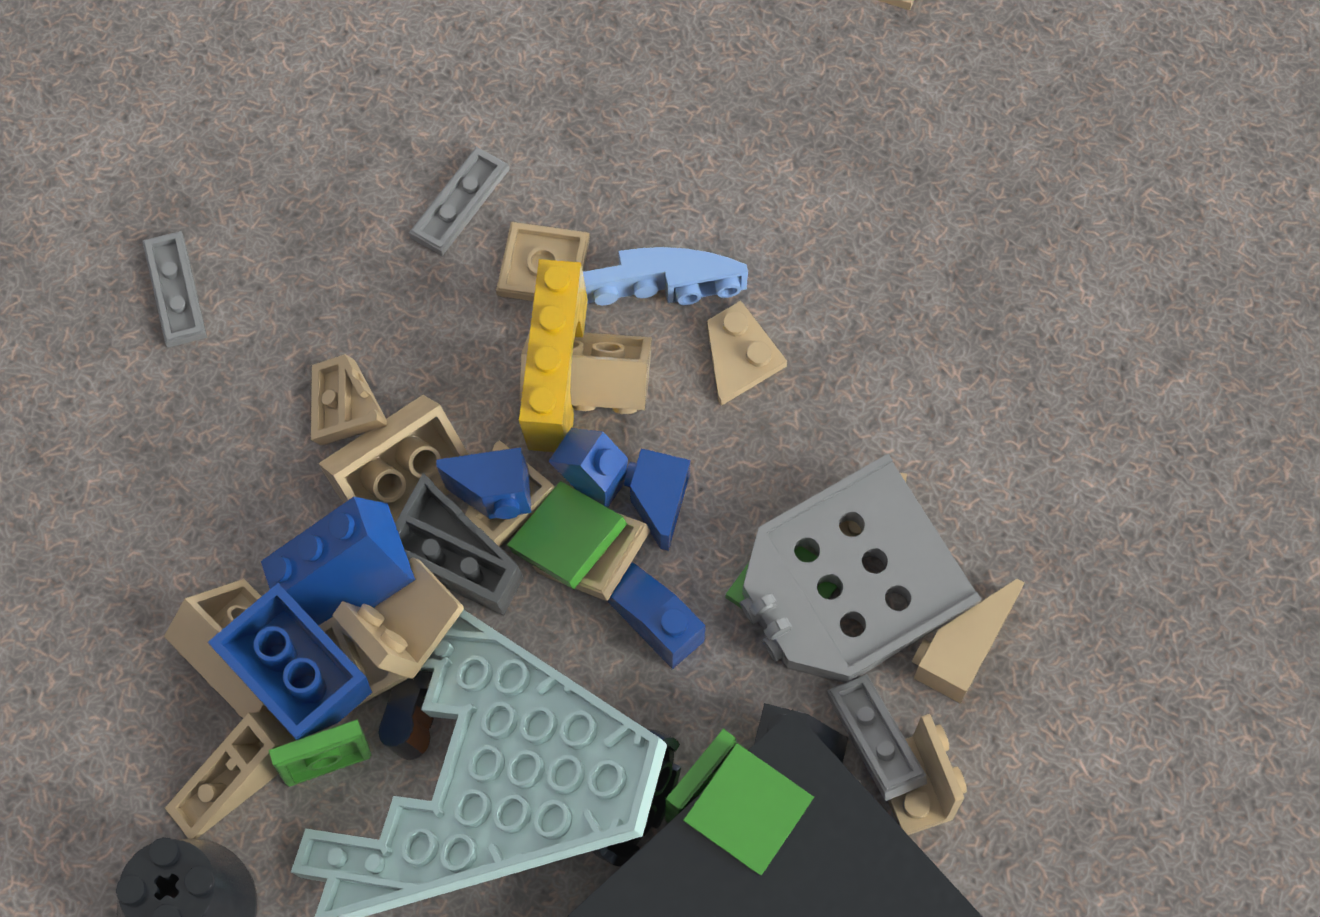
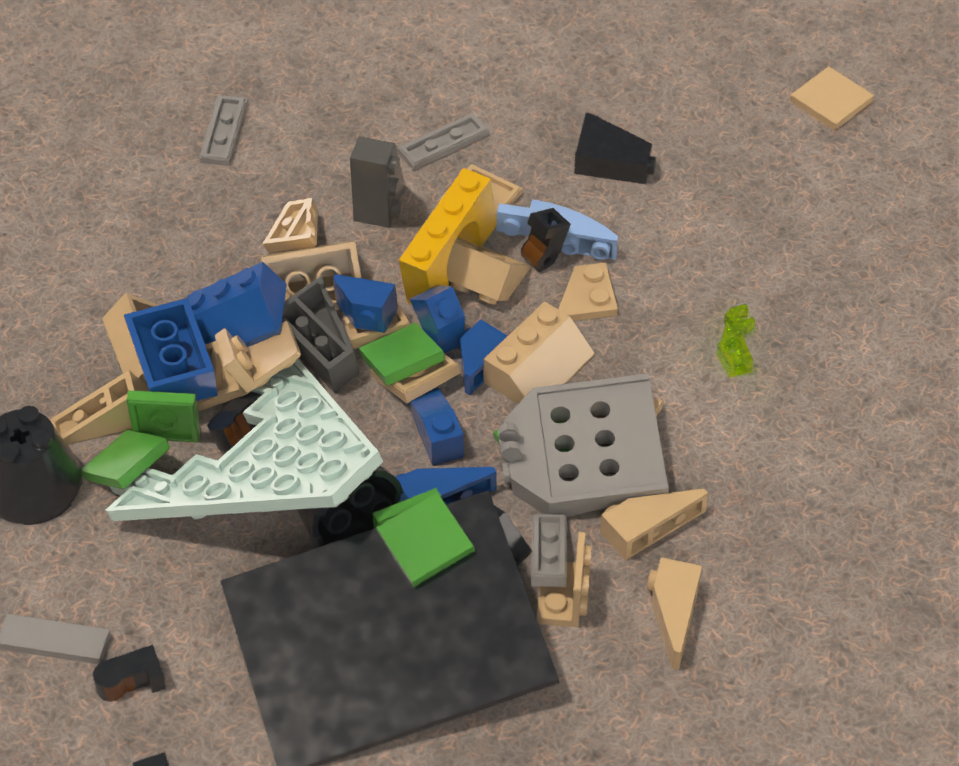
camera: 25 degrees right, 15 degrees down
(298, 831) = (125, 459): none -> bright green tile
(422, 306) = (376, 182): none -> dark grey wedge
(659, 306) = (545, 240): none -> black leg
(674, 142) = (612, 152): none -> black slope
(702, 709) = (450, 482): none -> blue slope
(730, 471) = (538, 353): none -> tan slope
(932, 333) = (732, 338): none -> clear neon green piece
(1052, 745) = (673, 601): none -> tan slope

